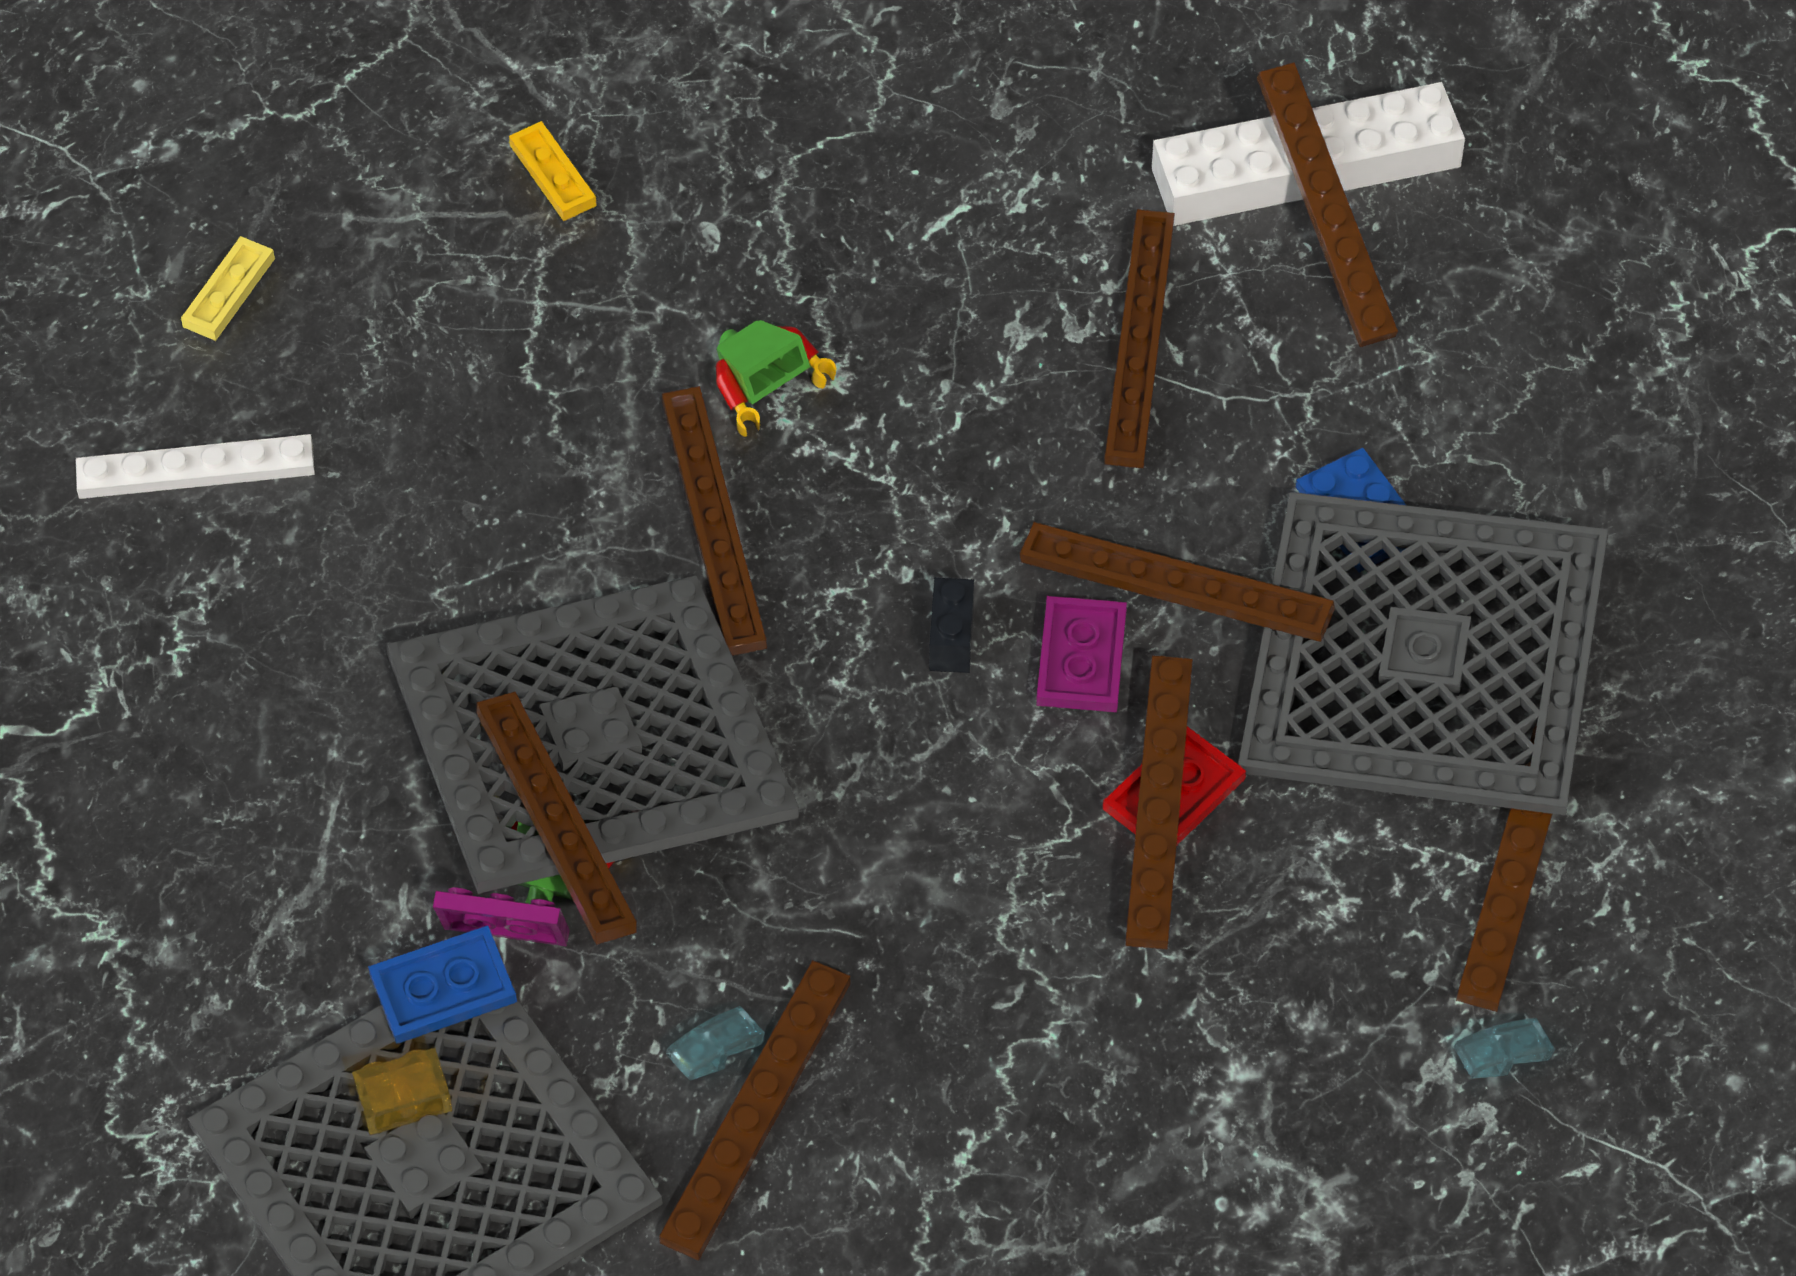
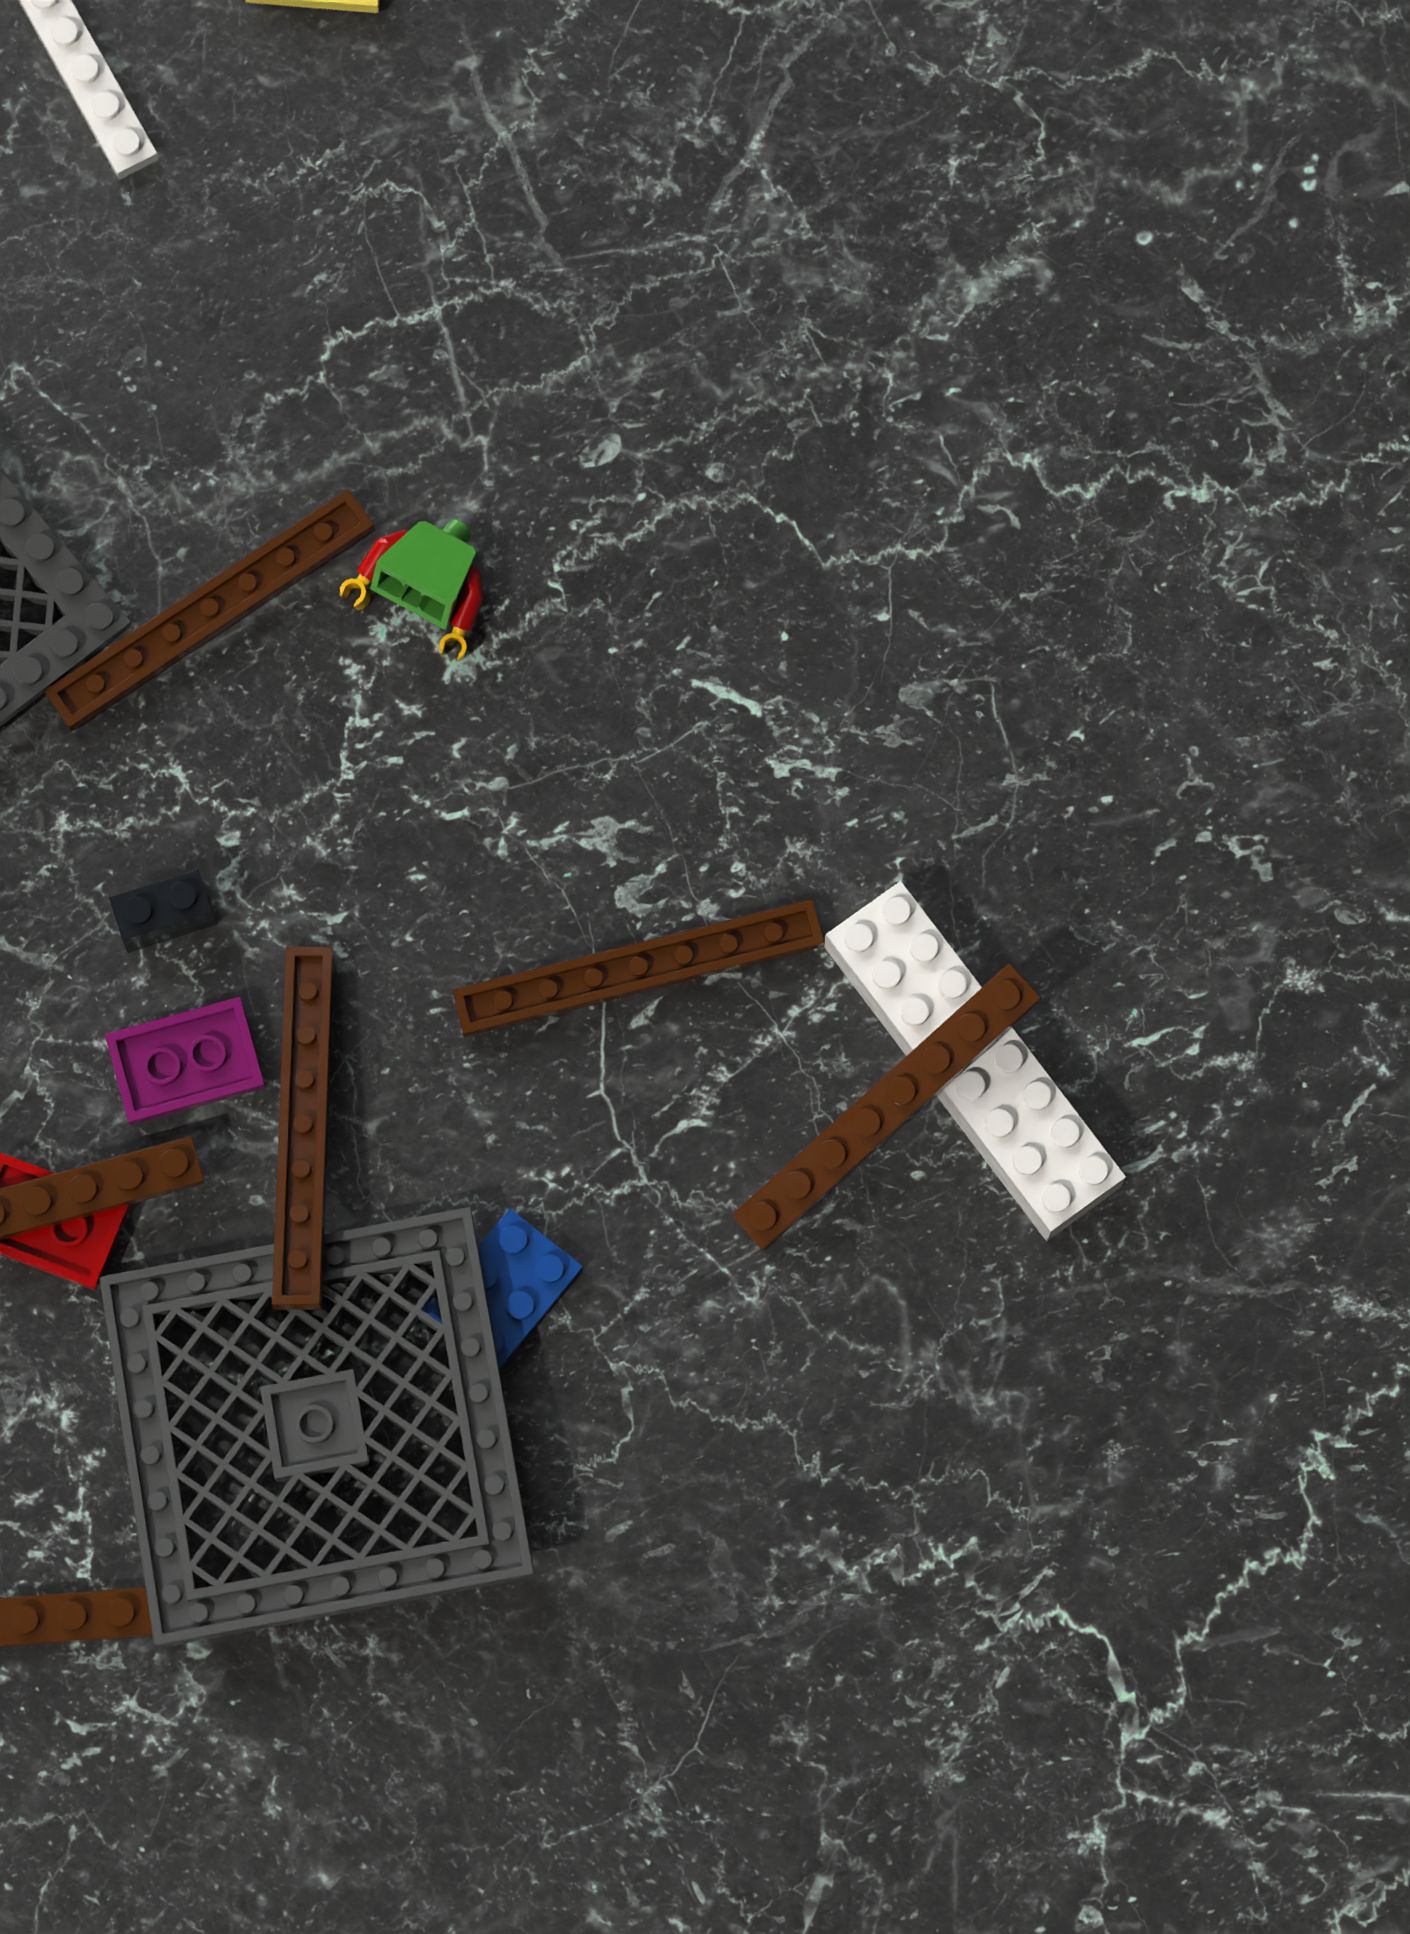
camera: 65 degrees right, 20 degrees up
(552, 171) = (611, 248): yellow plate -> none

